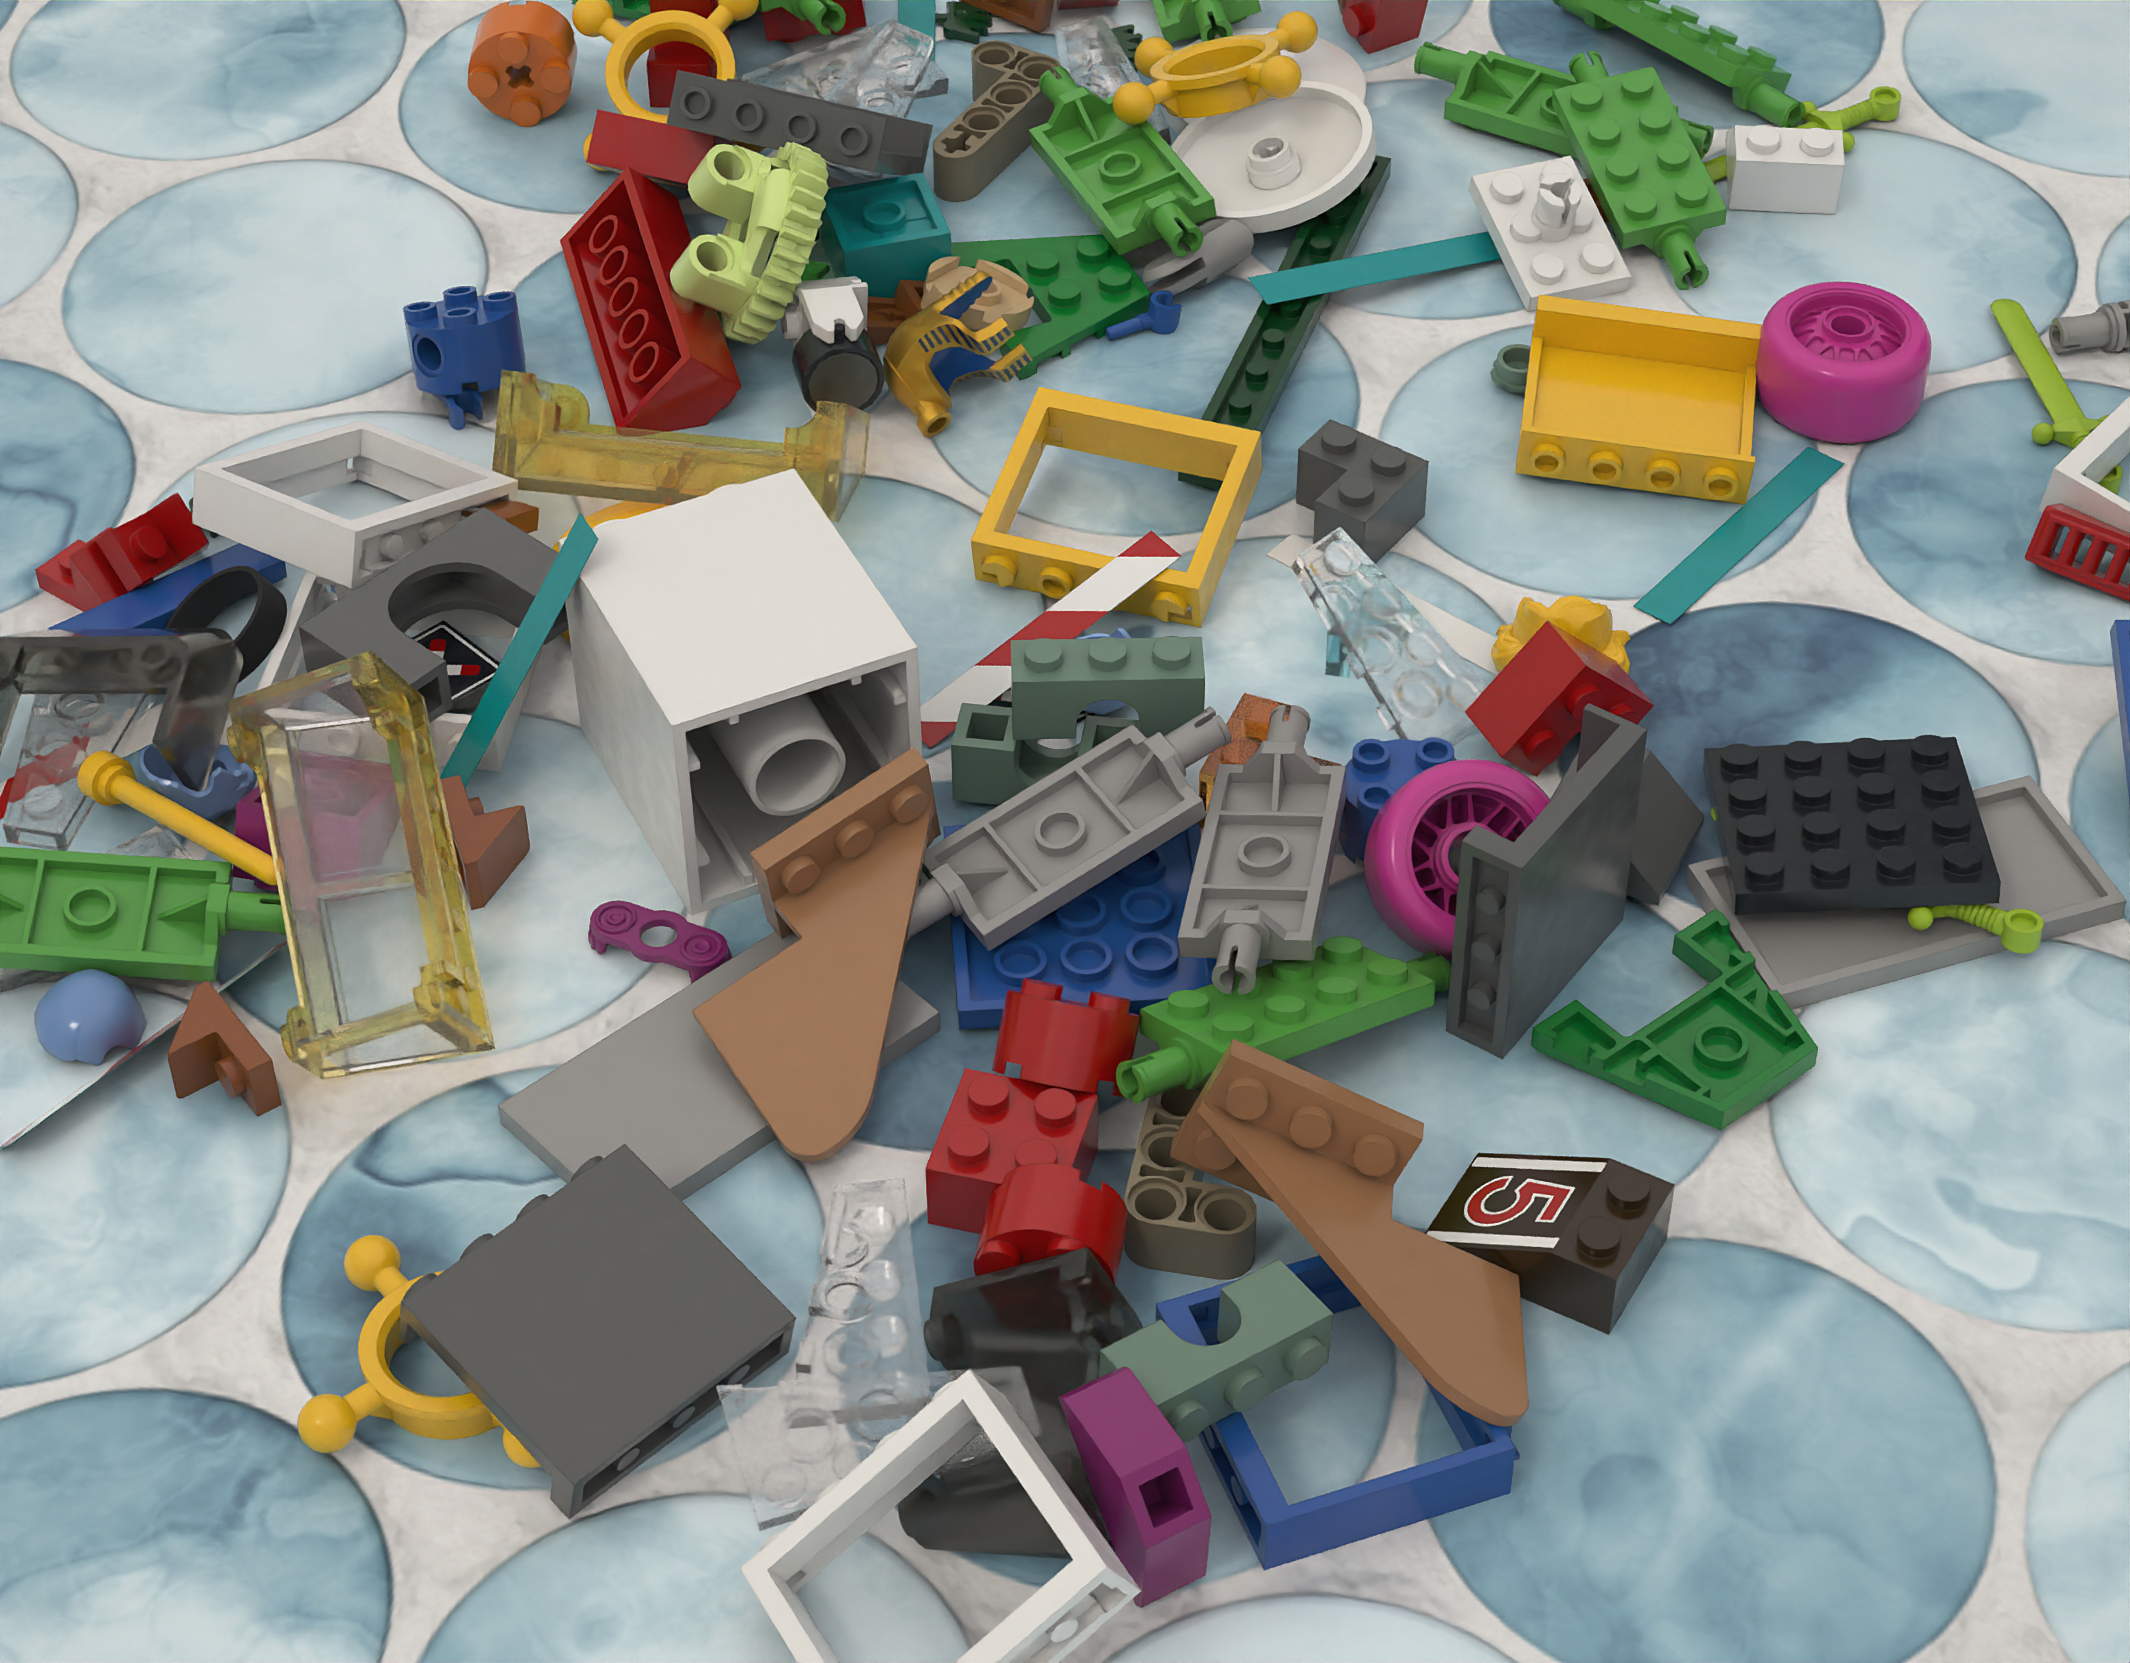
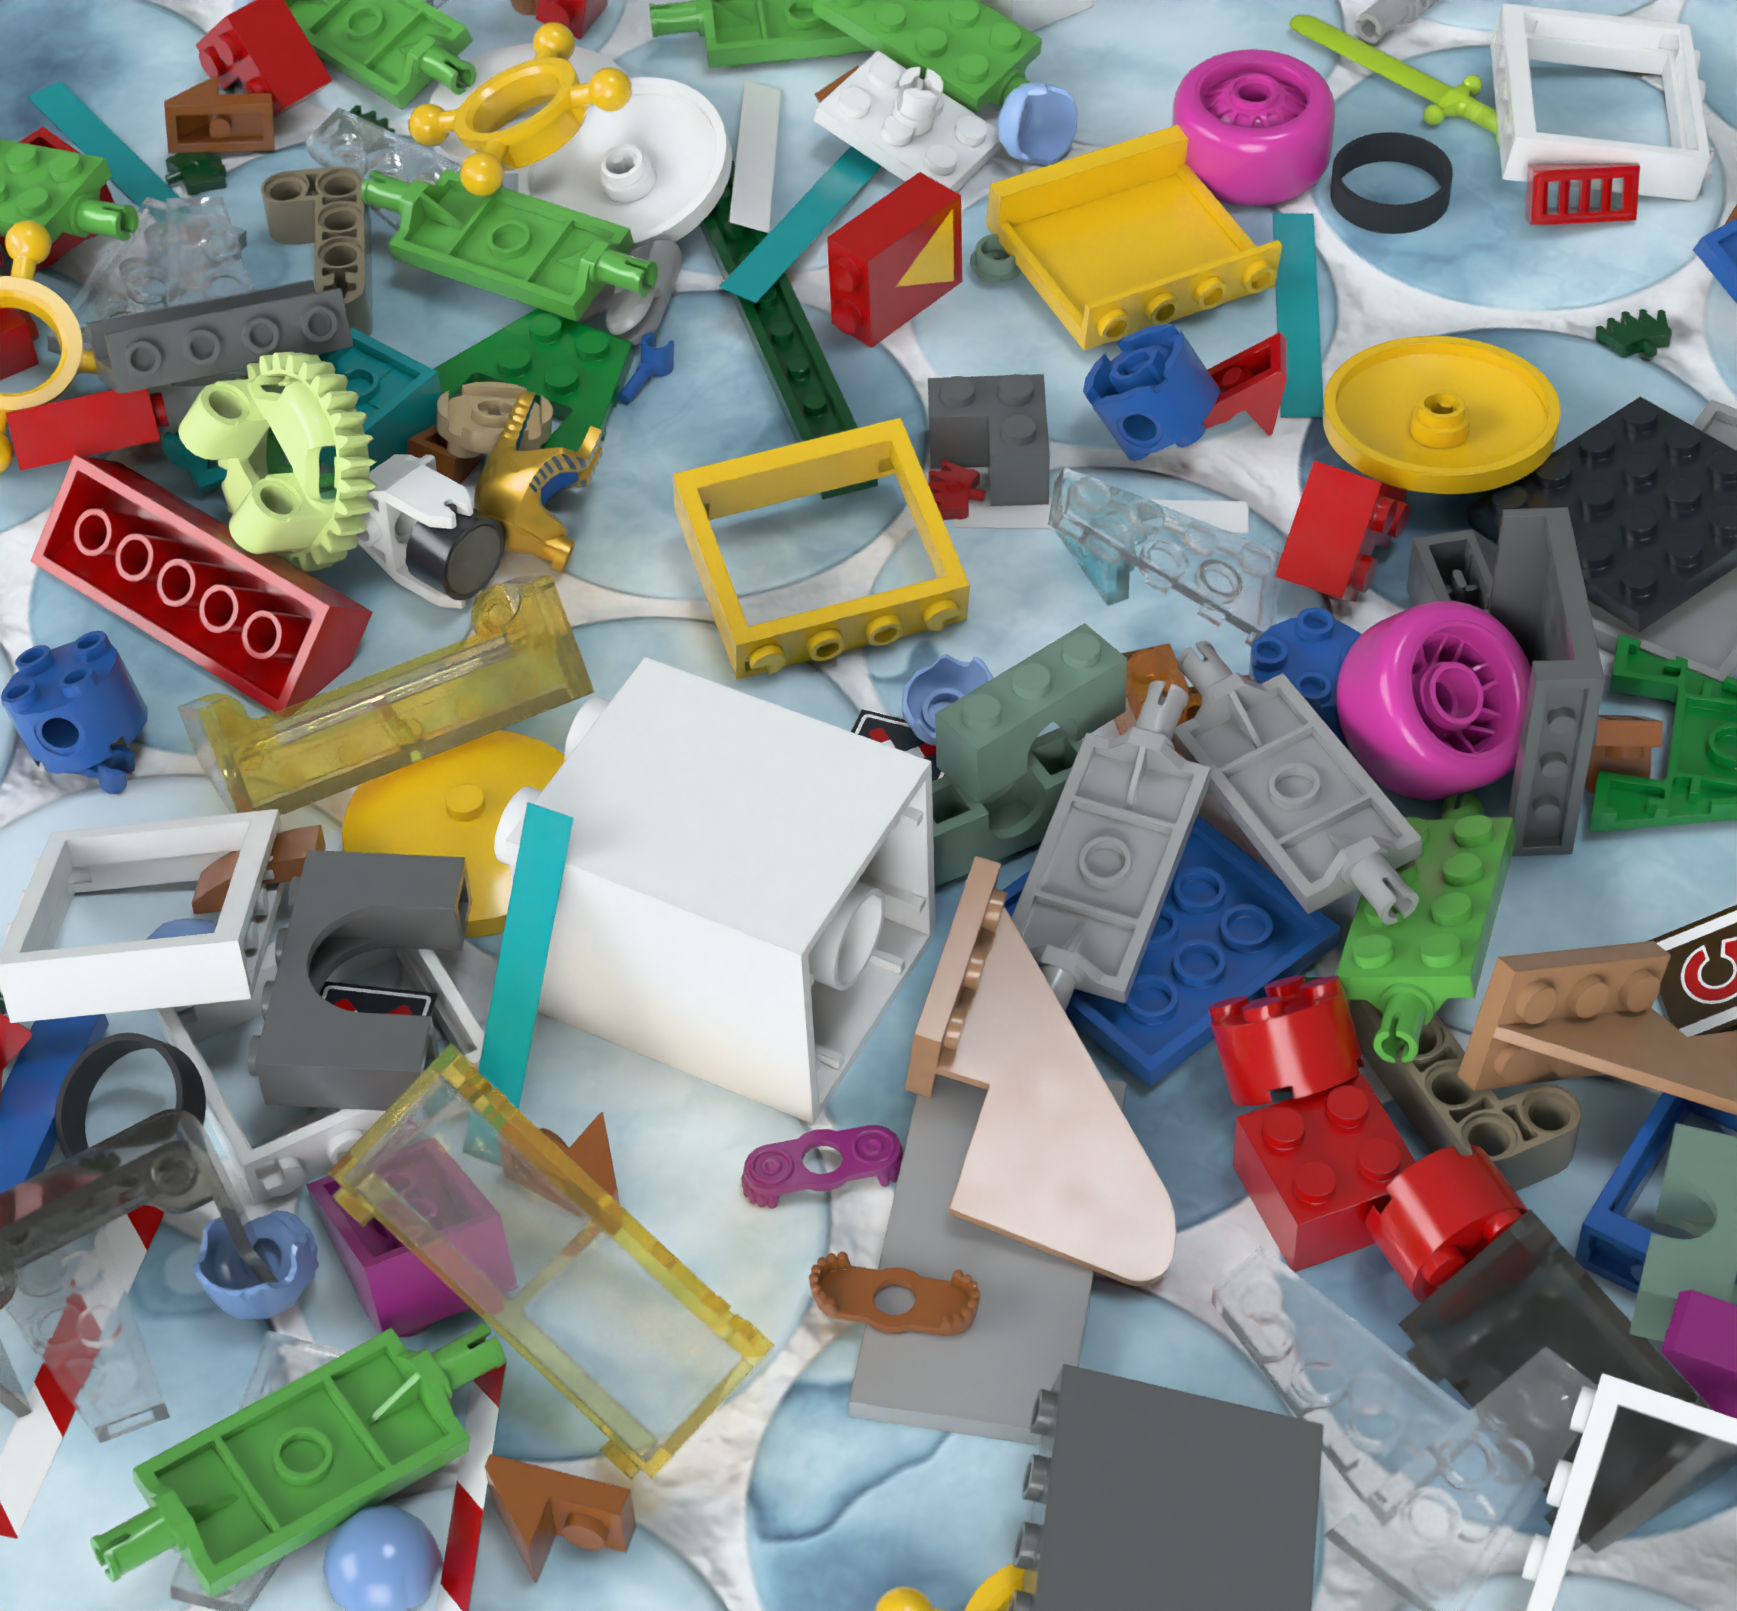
camera: 35 degrees left, 5 degrees up
(113, 781) = (168, 1320): yellow piece -> none
(574, 1029) = (850, 1293): none -> dark orange piece
(1062, 621) = (887, 648): white sticker -> none
(1285, 528) = (954, 488): none -> red piece
(1399, 199) = (755, 156): none -> white sticker
(1408, 321) = (895, 259): none -> red brick
(1509, 520) = (1152, 392): none -> blue brick
(1572, 613) = (1269, 475): yellow hair -> none
(1608, 558) = (1251, 383): none -> red slope
(1622, 990) = (1623, 746): none -> dark orange slope
(1658, 274) = (1038, 123): none -> light blue hair
(1750, 661) = (1441, 414): none -> yellow dish
(1928, 503) = (1391, 217): none -> black tyre
(2031, 696) = (1636, 335): none -> dark green piece

